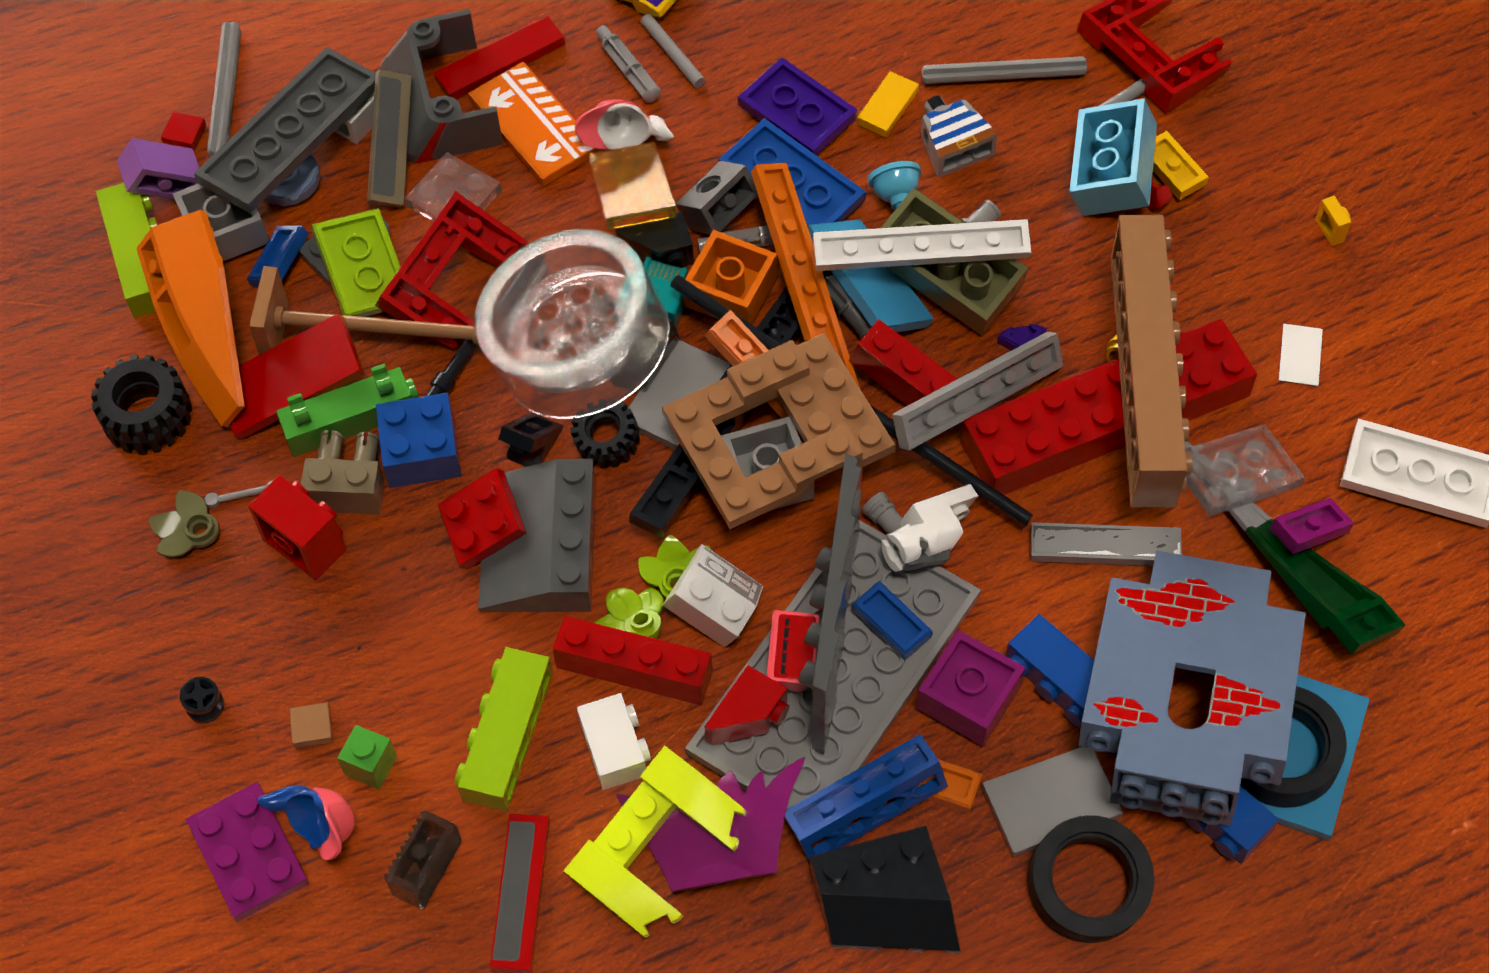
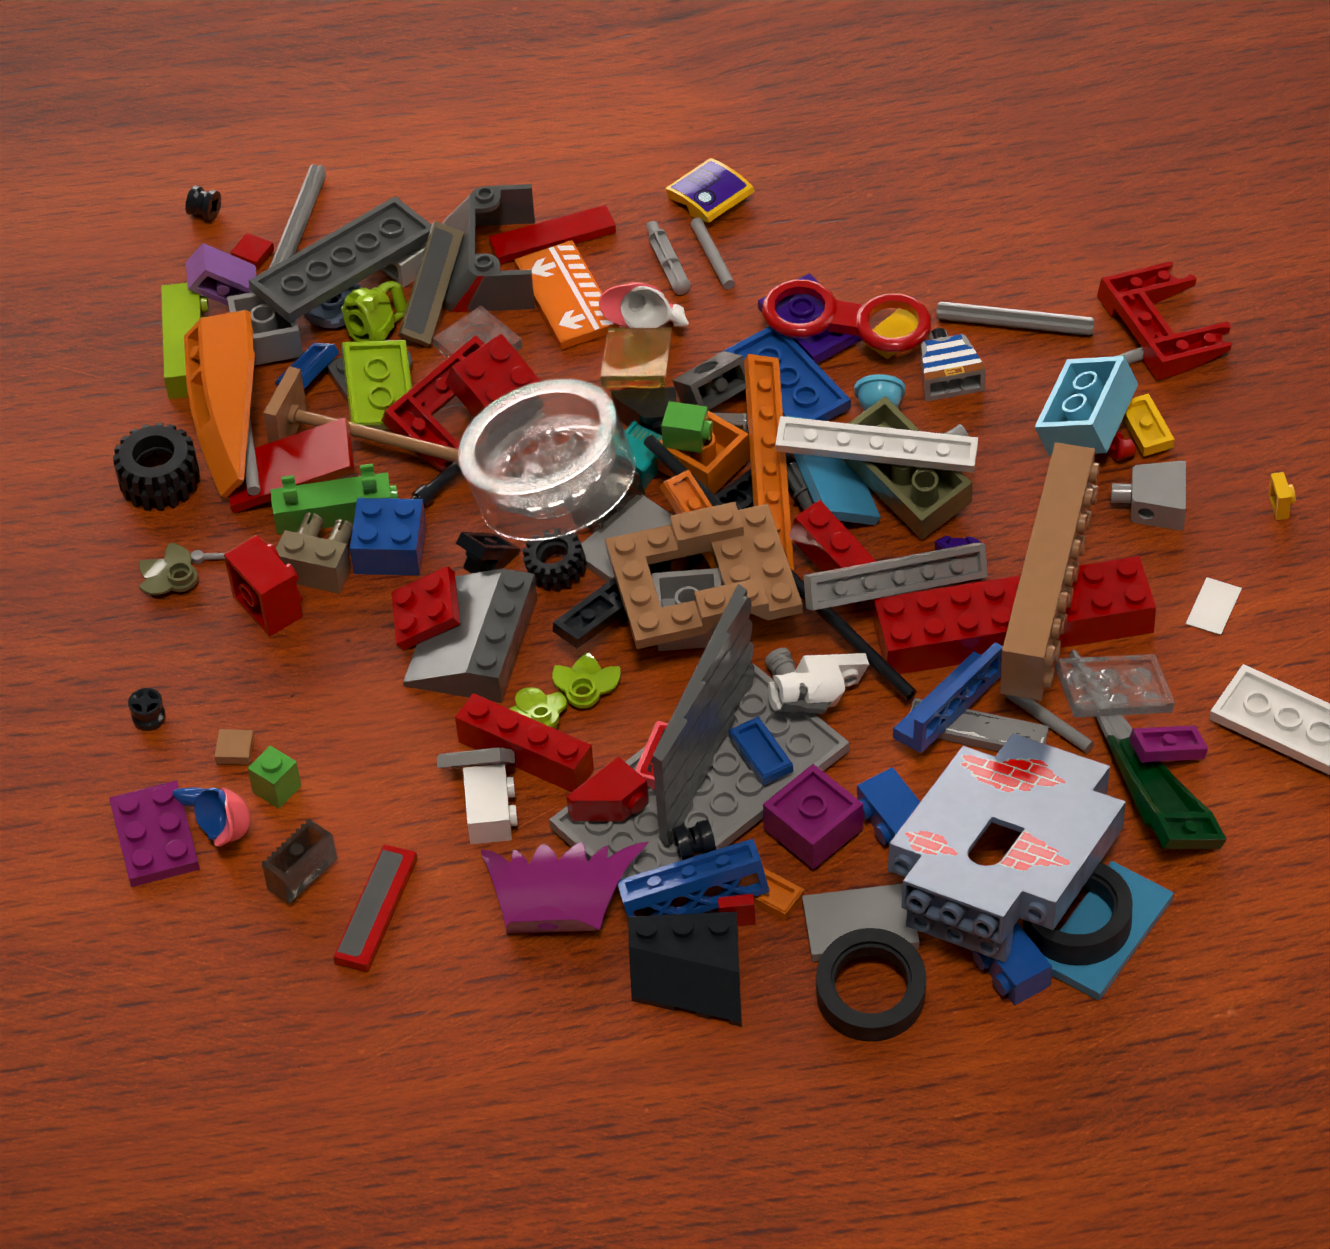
camera: 15 degrees right, 10 degrees down
(117, 86) = (203, 203): none -> black wheel
(249, 392) = (251, 469): none -> light grey bar
(331, 183) = (369, 311): none -> lime piece
(485, 238) = (489, 374): none -> red brick
(504, 729) = (398, 777): lime brick -> none
(586, 692) = (472, 758): none -> light grey tile
(604, 863) = (524, 842): neon yellow wedge -> none
(713, 260) = (686, 427): none -> bright green brick
(714, 596) = (609, 704): white slope -> none
(836, 100) = (846, 316): none -> red bar
(854, 747) = (693, 840): none -> black wheel
(920, 814) = (742, 904): none -> red tile
(1071, 520) = (950, 699): none -> blue fence
(1187, 524) = (1054, 722): none -> light grey bar
(1211, 242) = (1155, 494): none -> light grey torso

